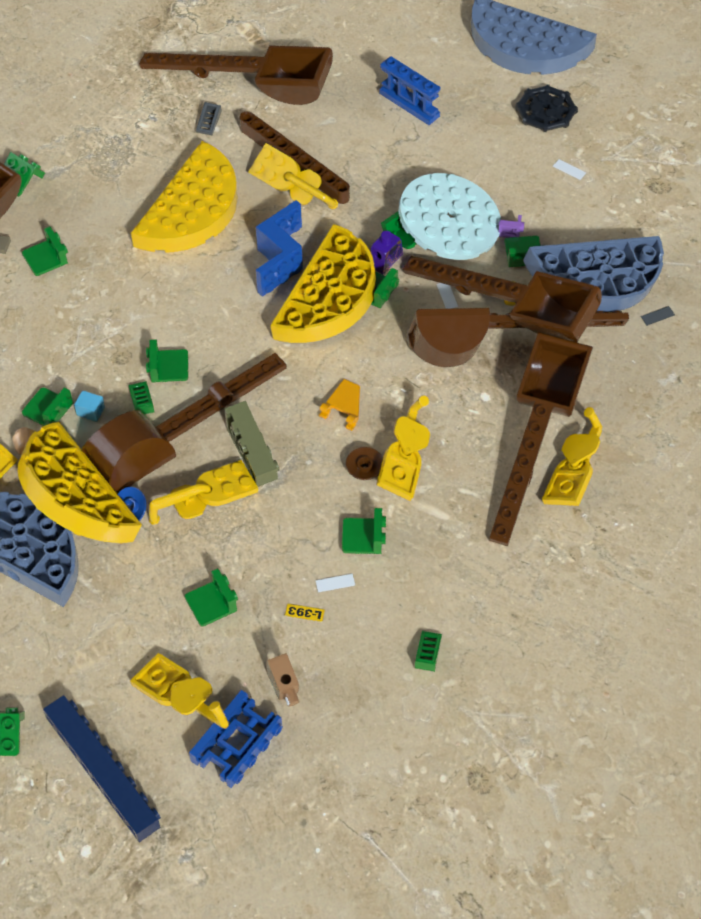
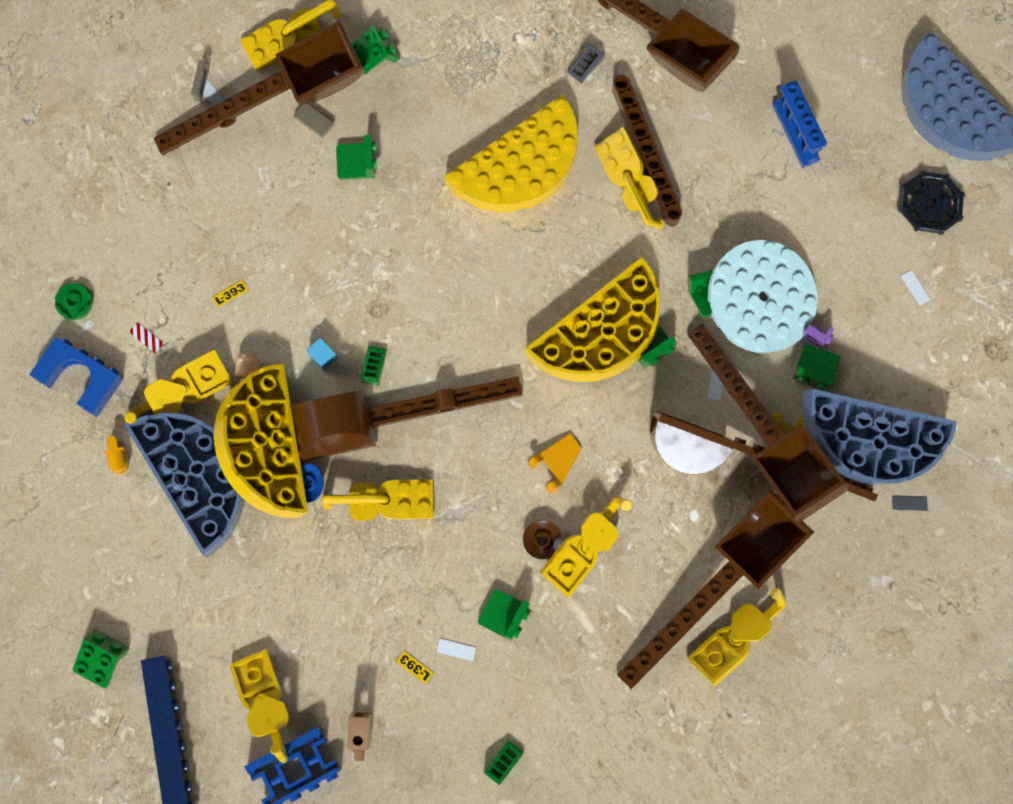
camera: 25 degrees right, 20 degrees up
(48, 406) = (283, 336): green bracket -> none
(166, 364) = (413, 340): green bracket -> none
(212, 600) = (336, 617): green bracket -> none
(251, 444) = (447, 471): olive wedge -> none
(279, 248) = (574, 245): blue bracket -> none
(386, 251) = (680, 309): dark purple torso -> none

